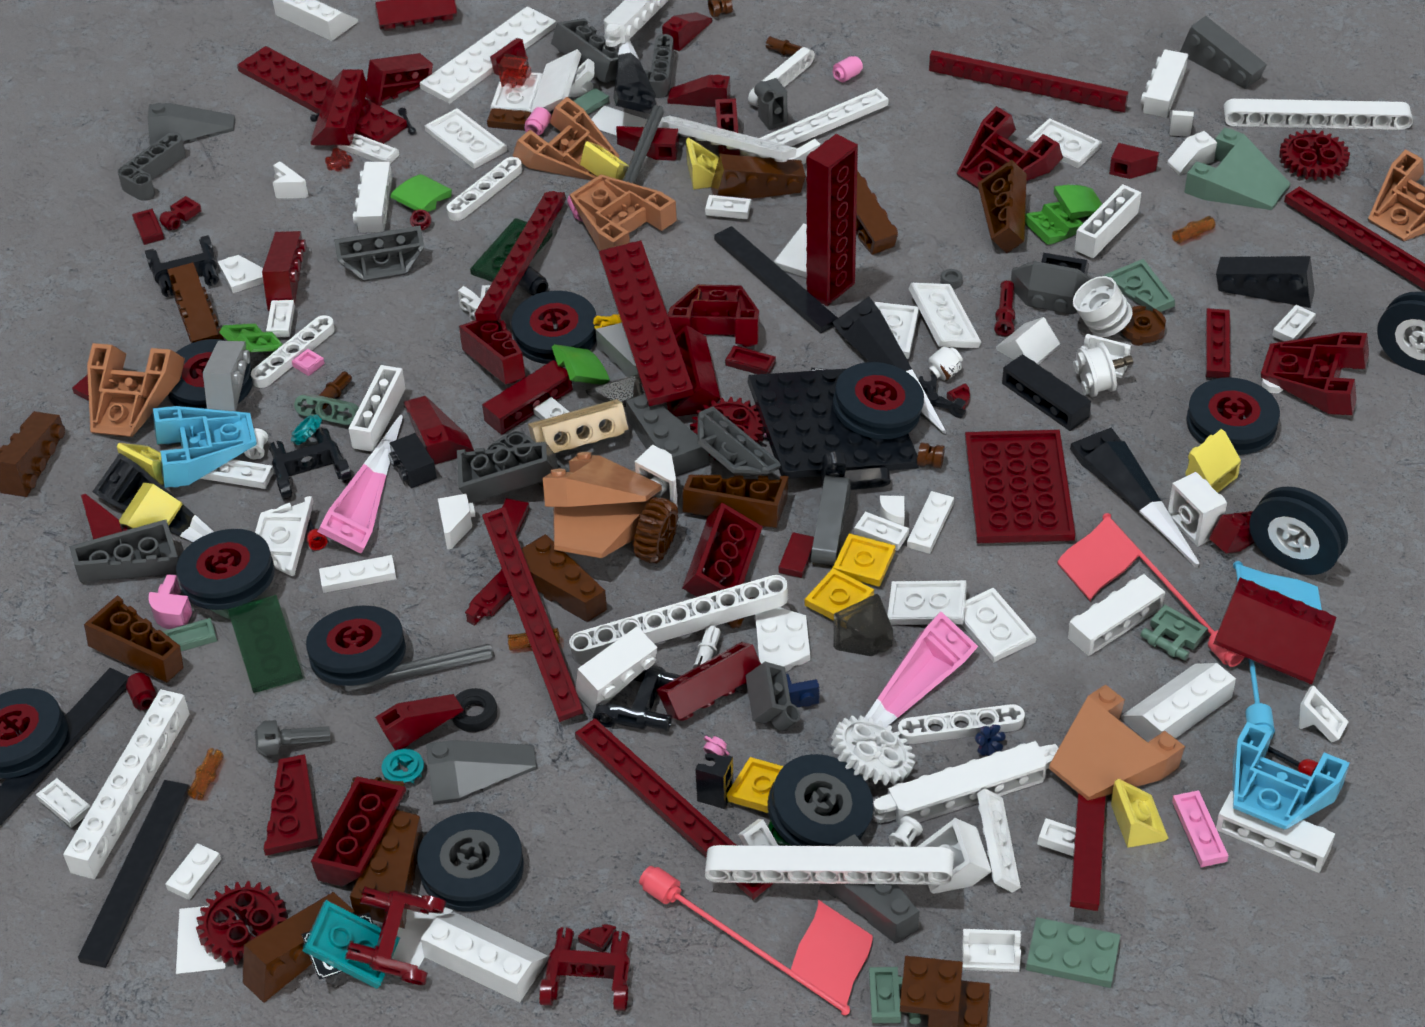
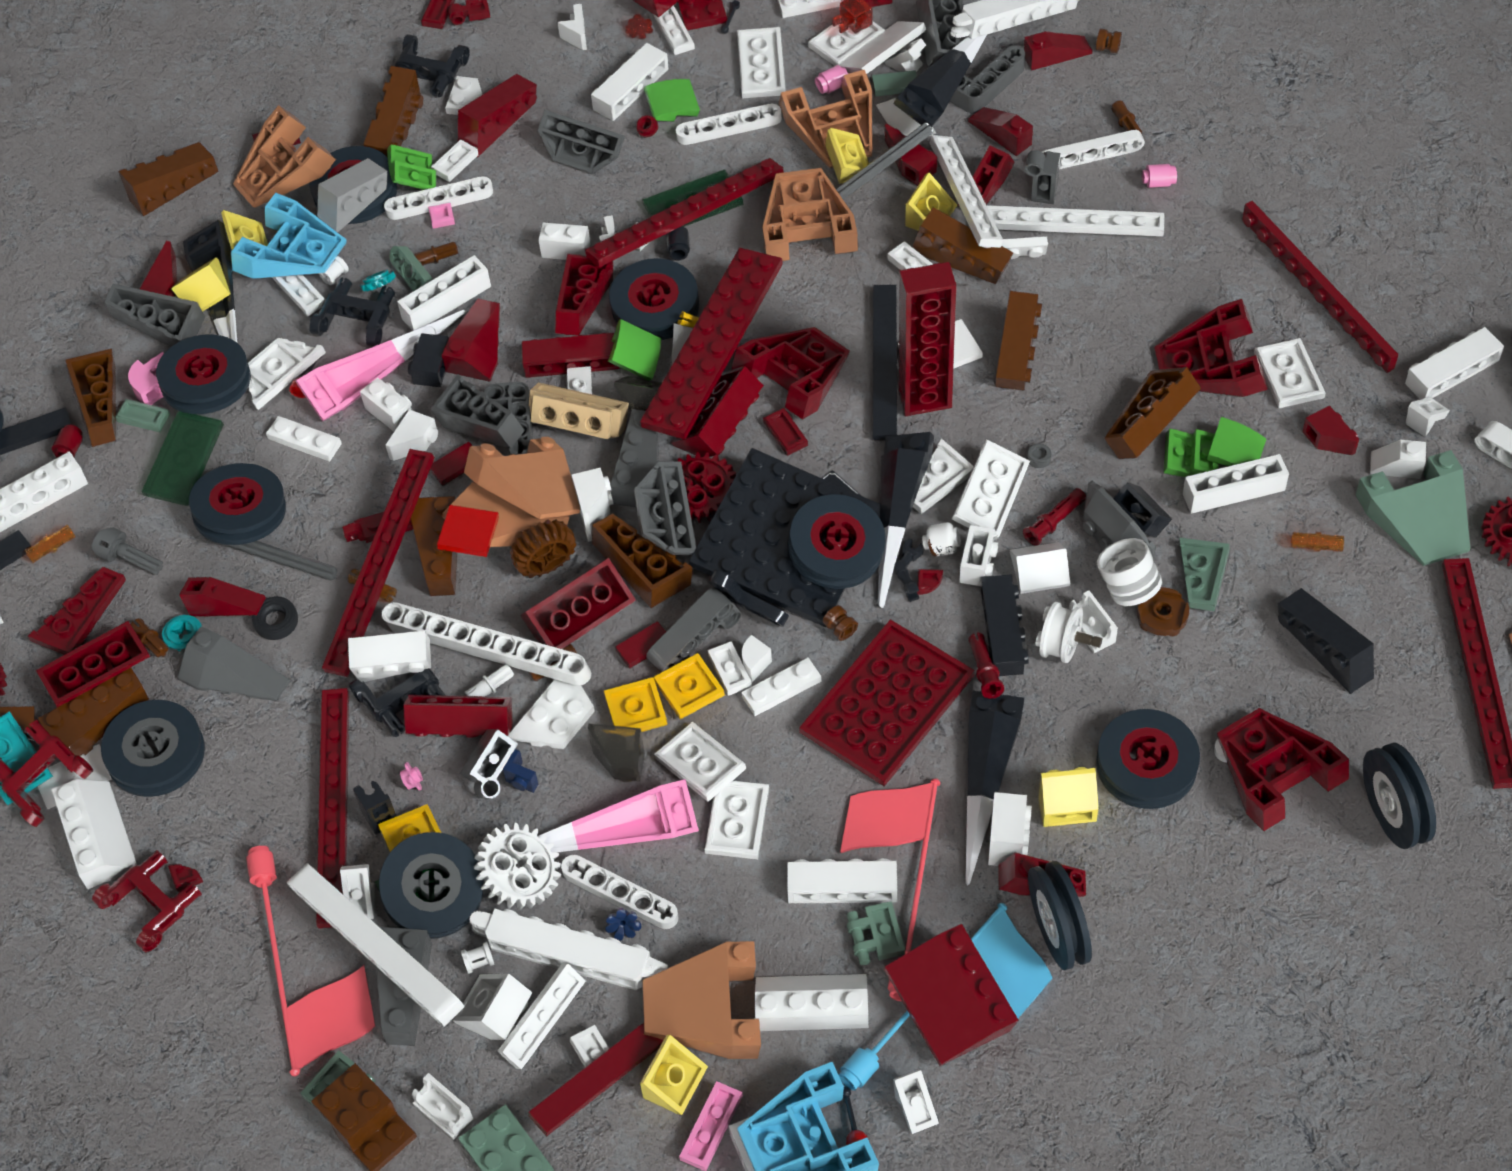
camera: 40 degrees right, 10 degrees up
(410, 509) = (385, 403): none -> white brick
(438, 325) = (563, 239): none -> white brick
(507, 119) = (811, 60): reddish brown plate -> none
(592, 544) = (468, 530): none -> red tile
(983, 357) = (977, 555): none -> white brick
(1071, 423) = (987, 672): none -> dark red pin
(1217, 343) = (1213, 675): dark red plate -> none
(1294, 324) = (1307, 702): white plate -> none

